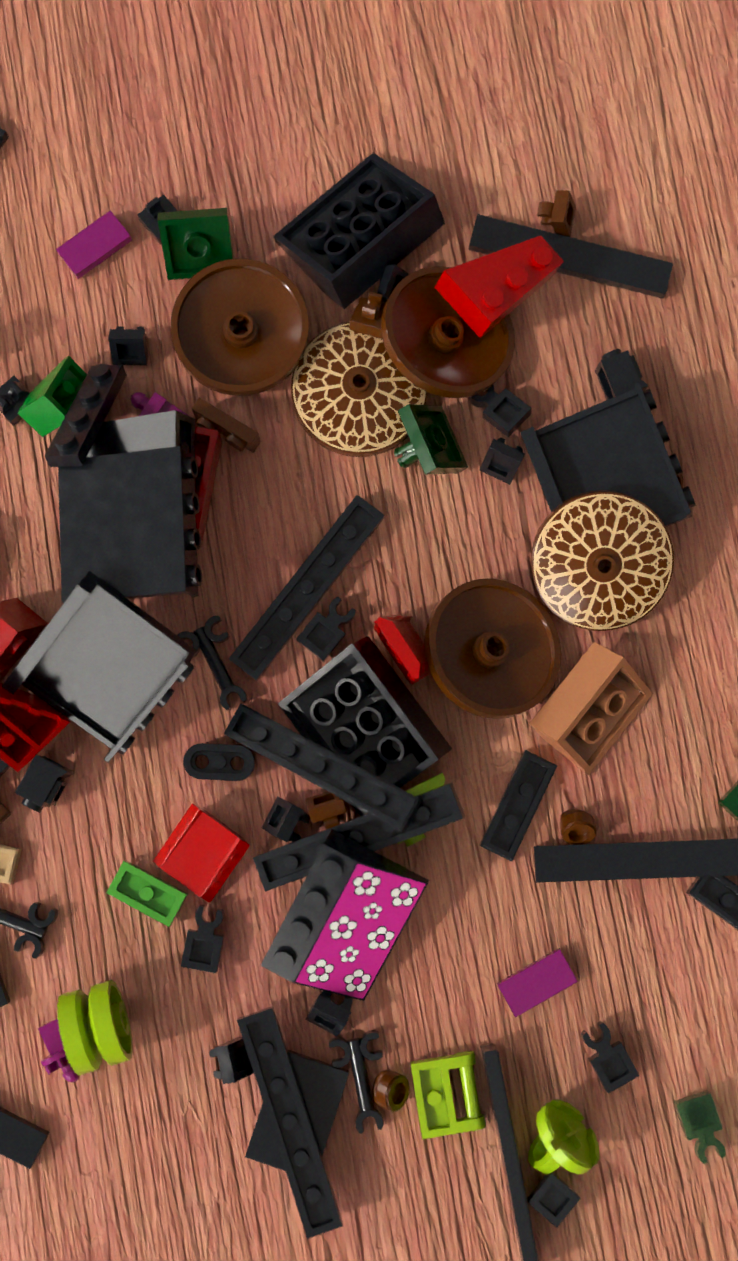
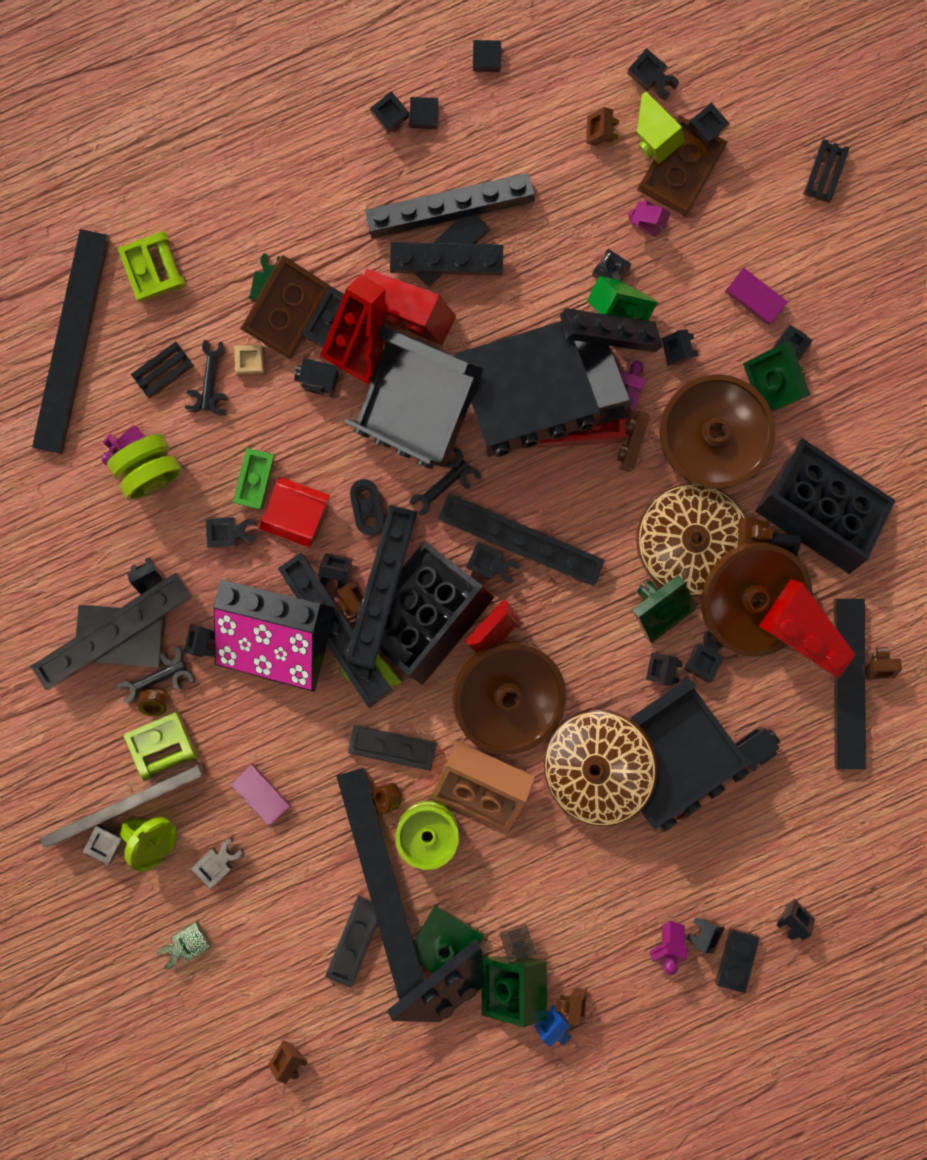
camera: 80 degrees right, 5 degrees up
(656, 789) = (427, 852): none -> lime wheel

